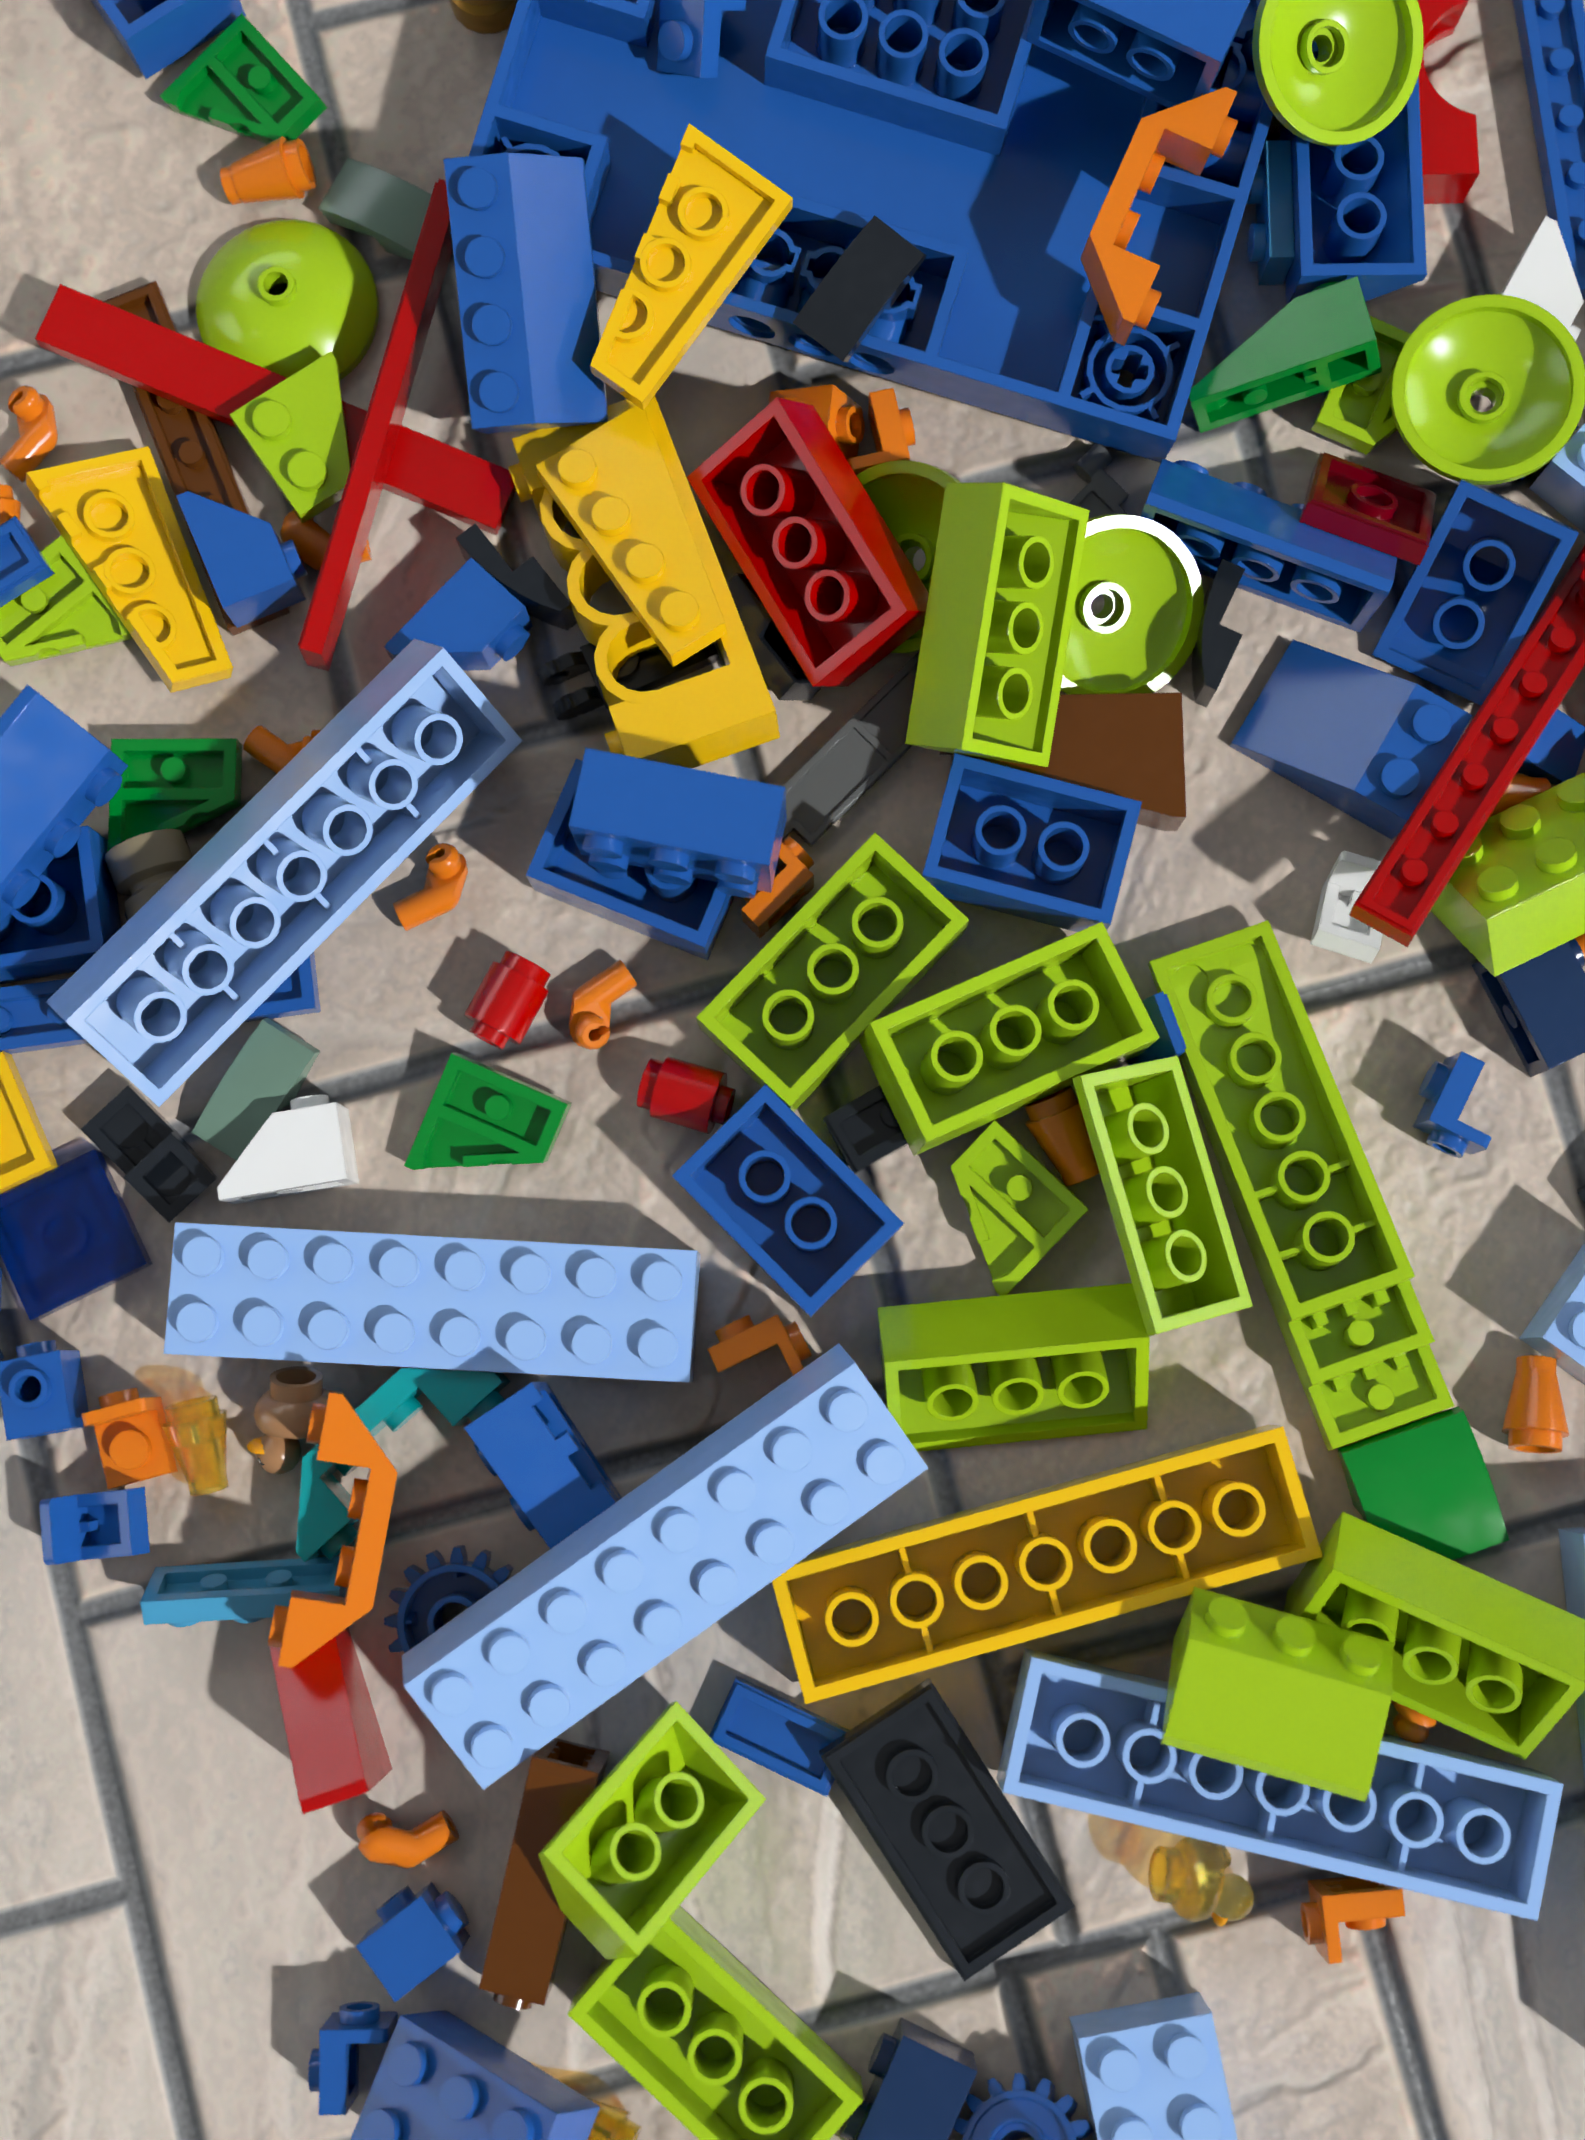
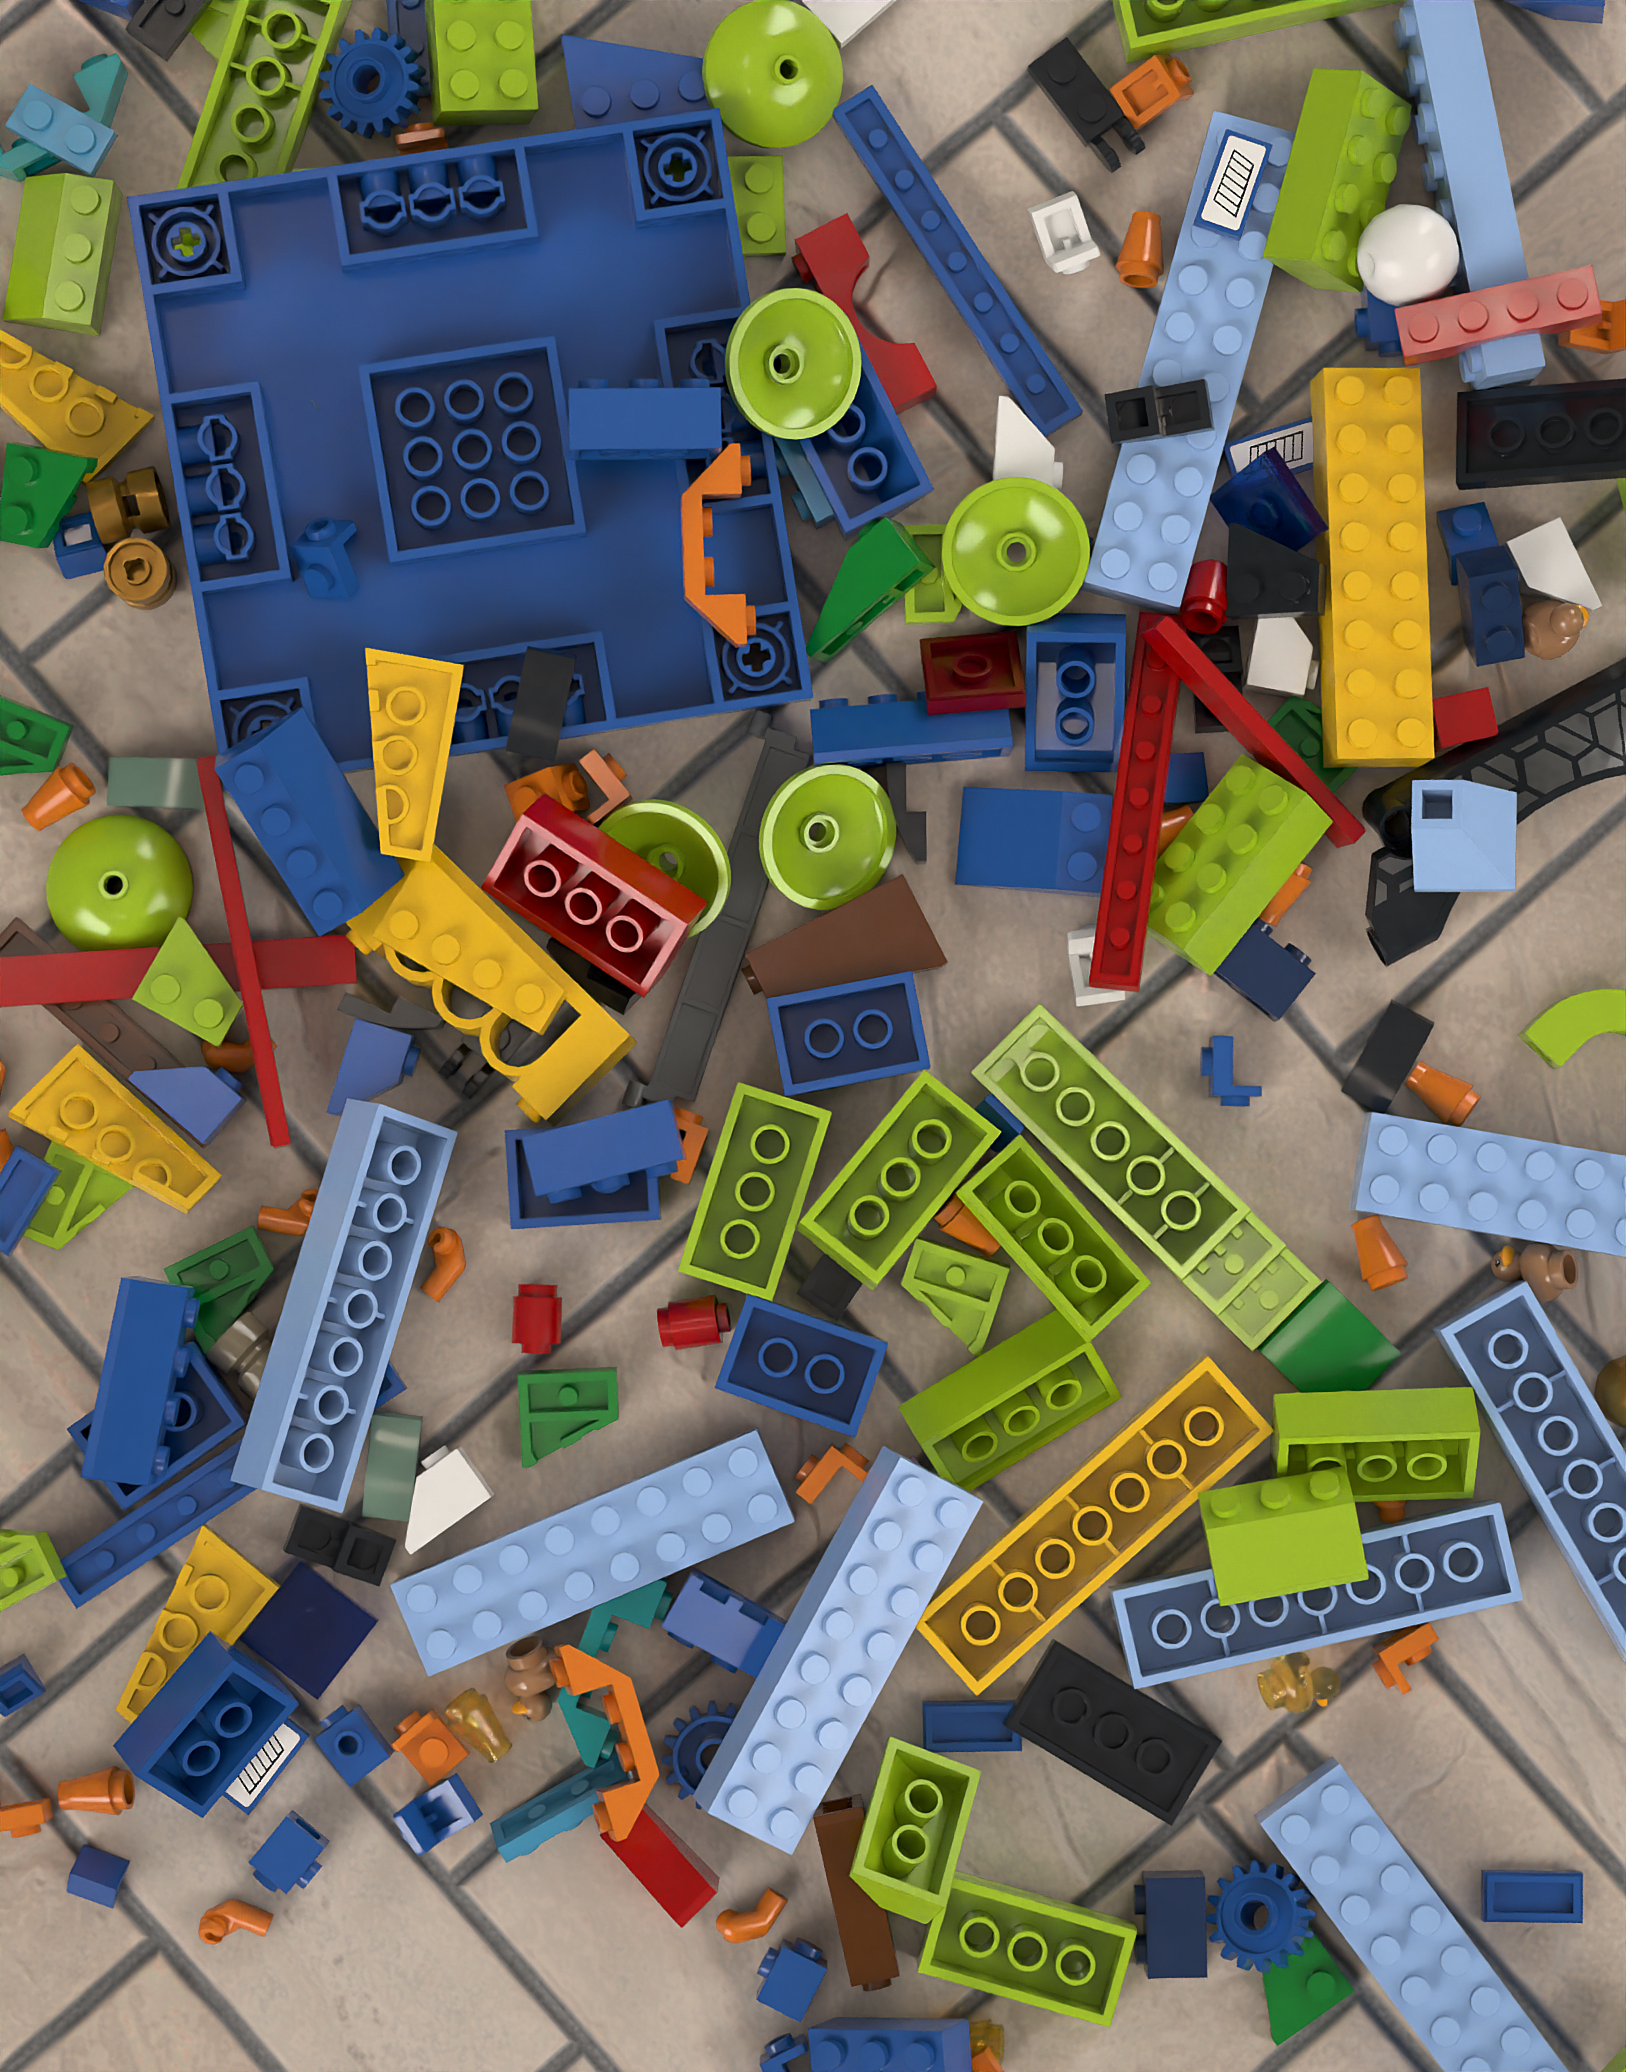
camera: 25 degrees left, 5 degrees up
(592, 1005) = (596, 1290): orange arm -> none
(997, 623) = (753, 900): lime slope -> none

